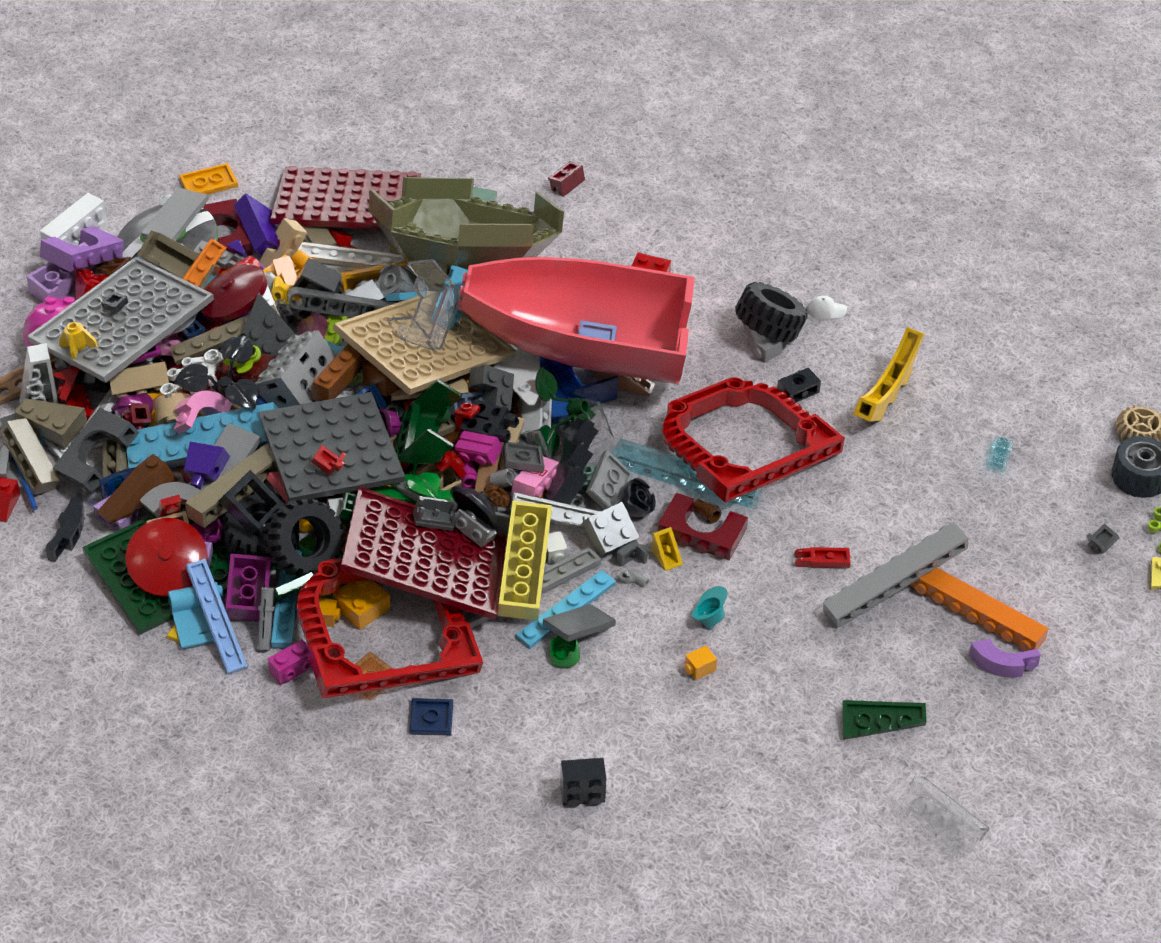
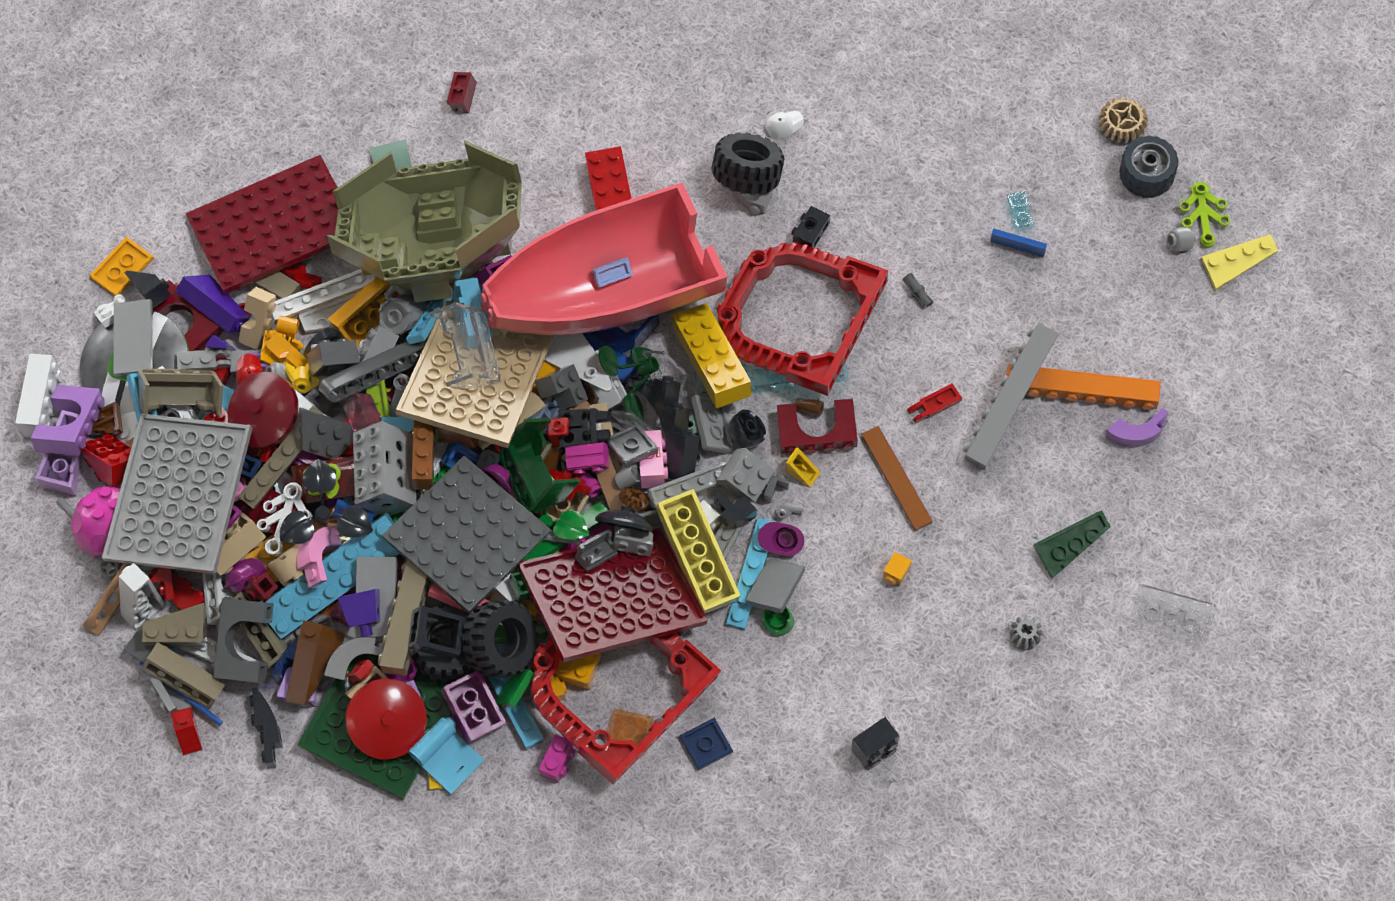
camera: 25 degrees left, 20 degrees up
(76, 338) = (158, 542): yellow brick -> none
(114, 302) = (163, 481): black plate -> none
(210, 255) = (203, 386): orange tile -> none
(216, 193) = (149, 286): none -> black slope
(216, 616) = (466, 751): light blue tile -> none
(265, 620) = (502, 711): light grey pin -> none
(327, 460) = (482, 556): red bracket -> none
(582, 553) = (737, 514): none -> black brick
(609, 590) = (781, 538): none -> magenta piece
(642, 430) = (711, 355): none -> yellow brick
(710, 606) = (873, 507): teal piece -> none
(749, 598) = (897, 478): none -> dark orange tile
(788, 766) = (1024, 638): none -> light grey gear
(864, 470) = (917, 290): none -> dark grey pin
(875, 402) = (891, 184): yellow arch -> none
(982, 473) = (1018, 242): none -> blue tile
(1102, 539) = (1153, 260): dark grey bracket -> none
(1140, 534) = (1181, 239): none -> light grey head

